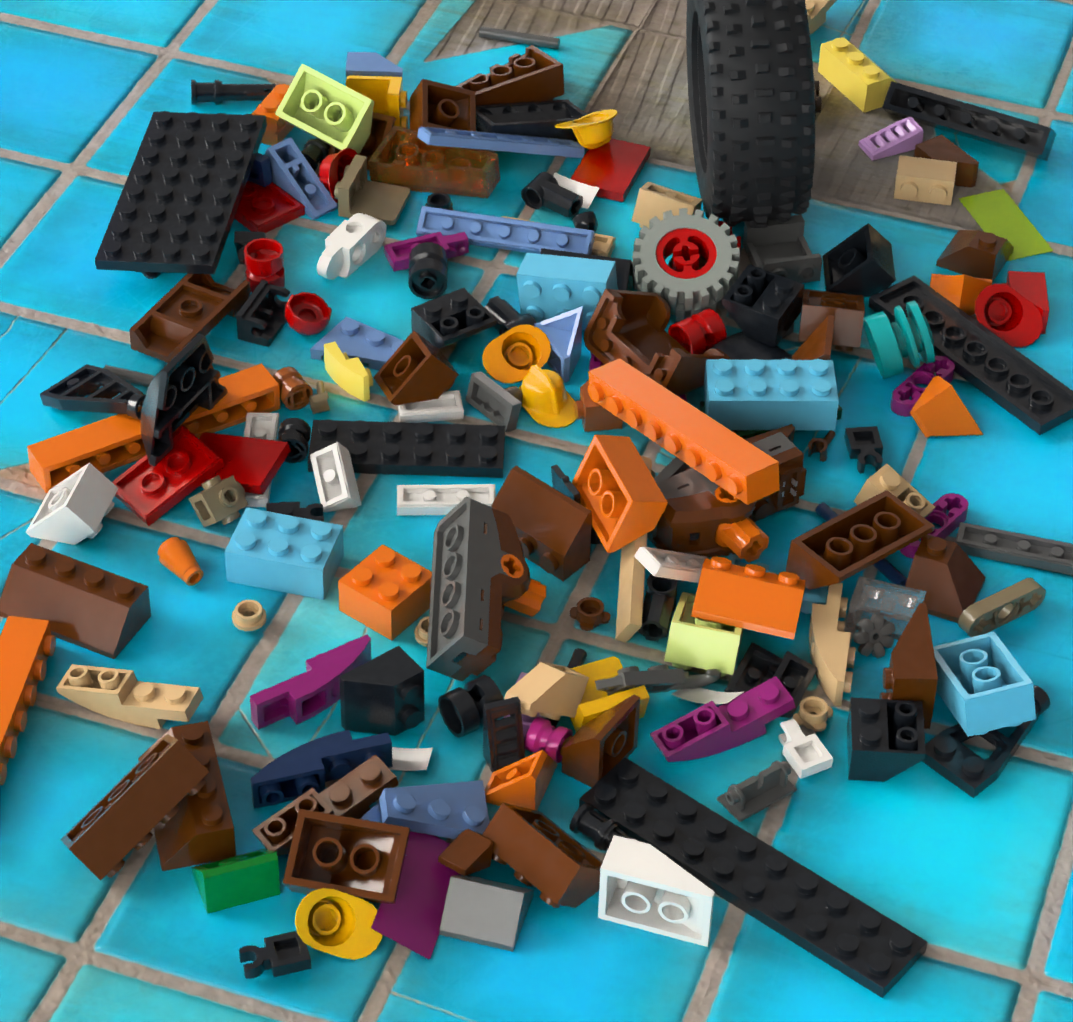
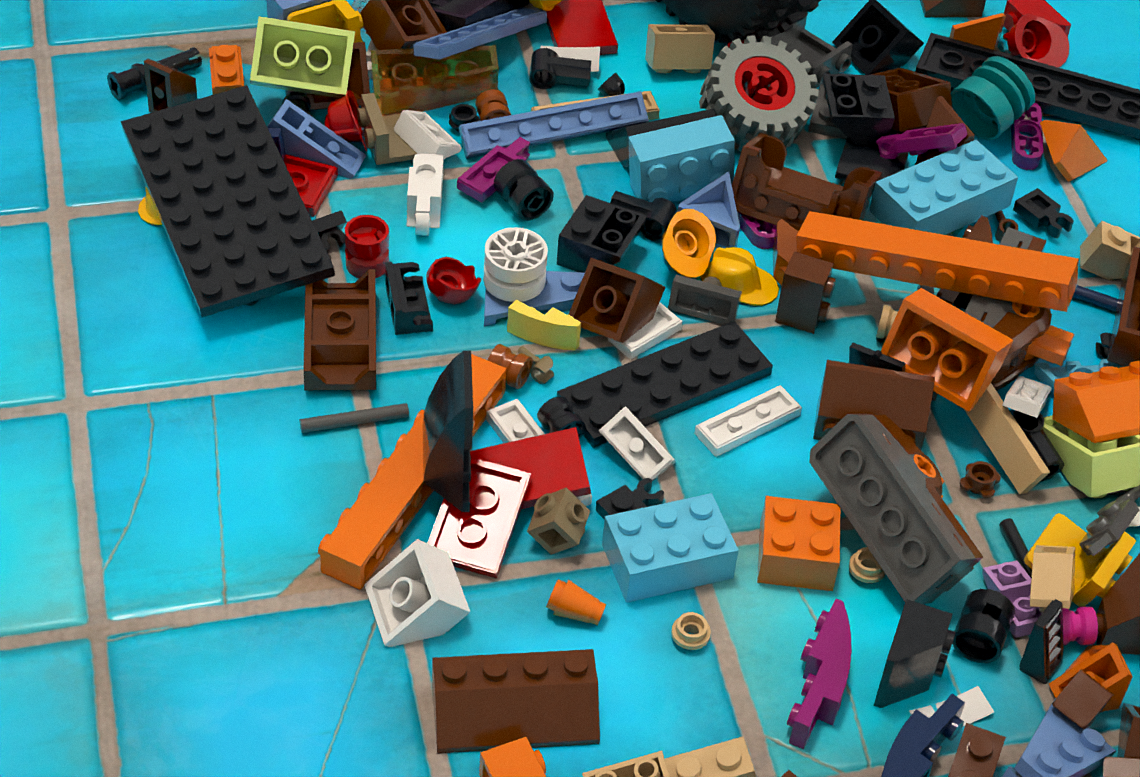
camera: 35 degrees left, 5 degrees up
(70, 393) = (298, 444): black plate -> none
(224, 97) = (167, 86): none -> slope
(355, 315) = (515, 264): none -> white wheel
(392, 205) = (425, 134): none -> white slope
(467, 201) = (492, 105): none -> dark orange wheel
(489, 785) = (1082, 699): none -> reddish brown slope
(571, 421) = (804, 292): none -> brick
(699, 331) = (817, 155): red wheel -> none
(790, 346) = (921, 140): none -> magenta hinge

